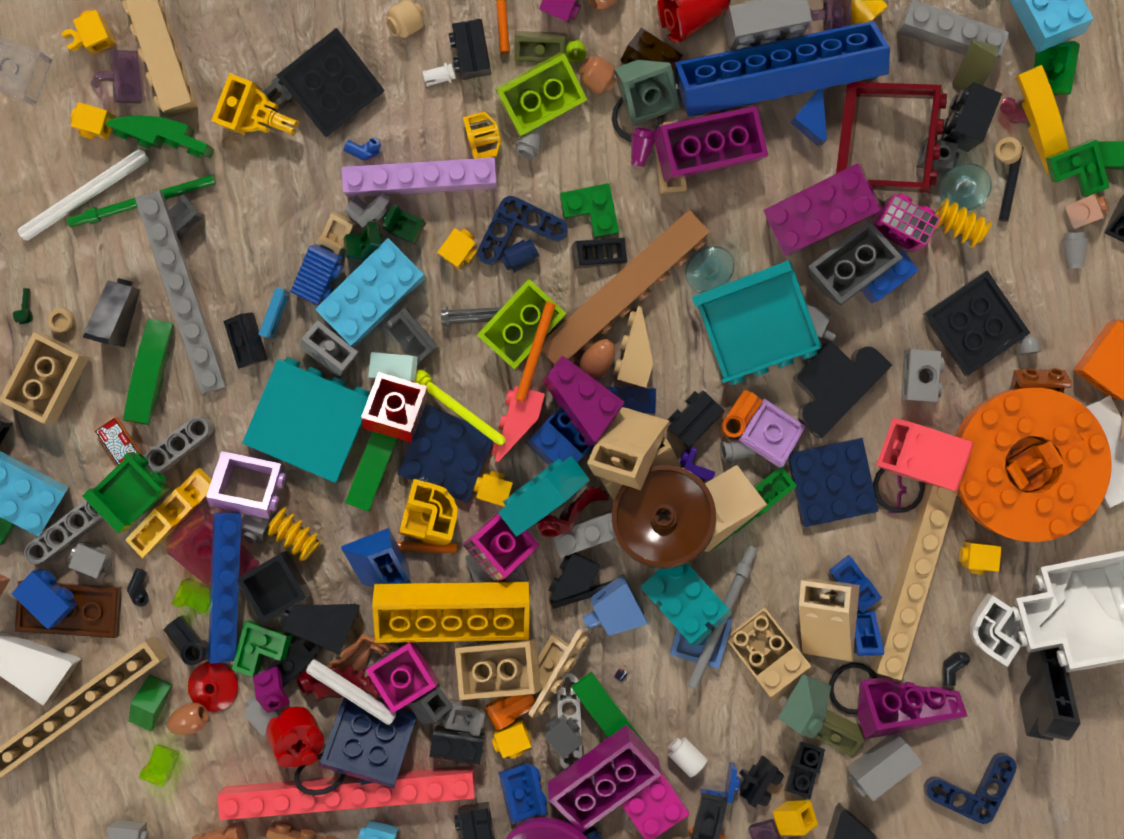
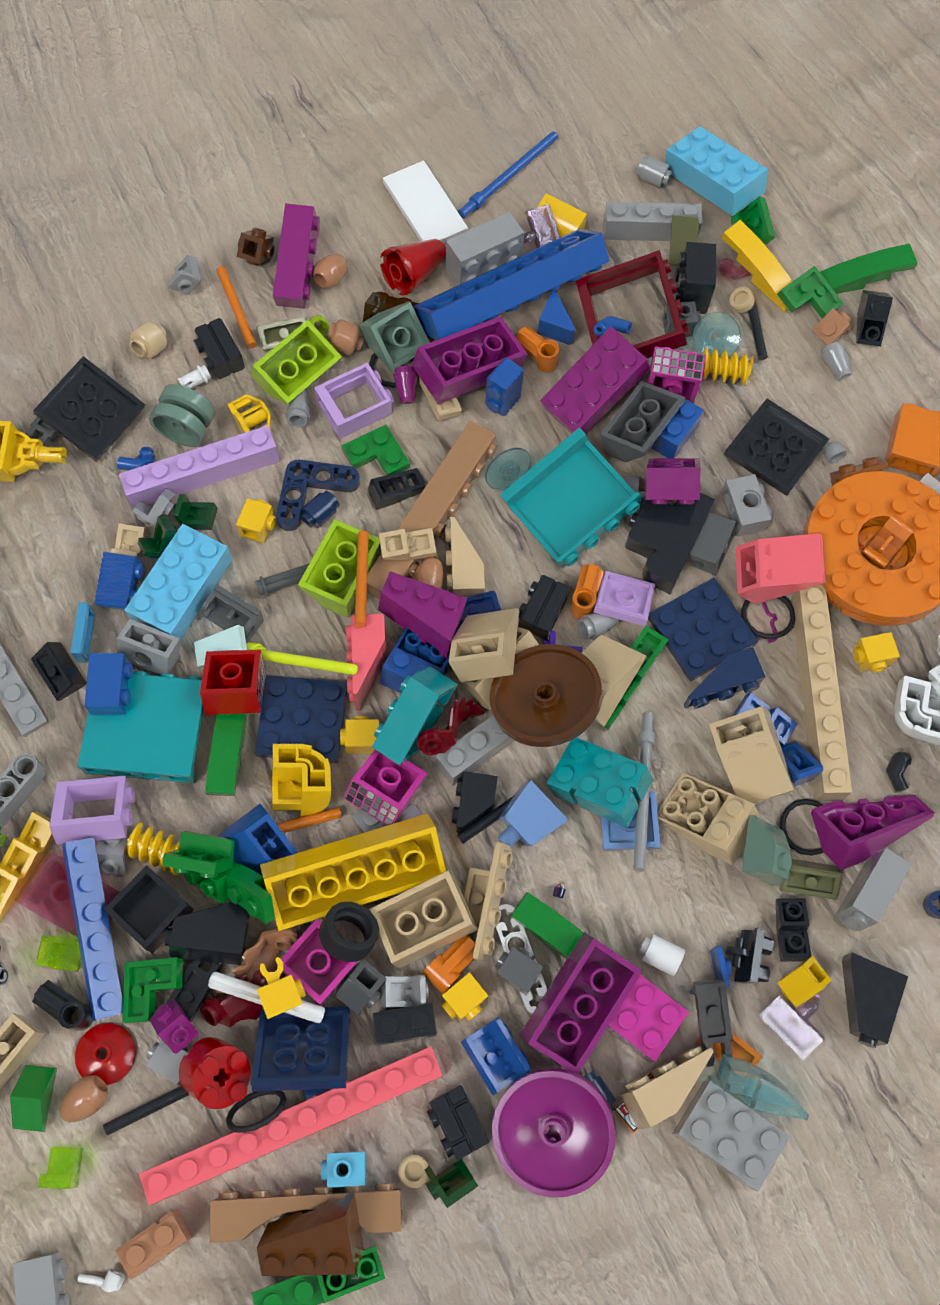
camera: 20 degrees left, 20 degrees down
(232, 741) = (145, 1110): none -> black bar
(284, 380) = (108, 684): none -> blue brick
(326, 562) = (201, 854): none -> green bracket
(346, 587) = (240, 886): none -> green slope
(361, 698) = (279, 994): none -> yellow brick
(418, 118) = (182, 415): none -> sand green wheel
(450, 664) = (336, 945): none -> black tyre
(588, 325) = (407, 546): none -> tan slope
(611, 131) = (344, 383): none -> lavender window
(733, 183) = (504, 387): none -> blue brick
(783, 142) = (541, 350): none -> orange piece
(840, 536) = (734, 674): none -> dark blue slope
(860, 150) = (614, 322): none -> blue arm
(861, 334) = (673, 480): none -> magenta slope
(874, 404) = (712, 543): none -> dark grey hinge

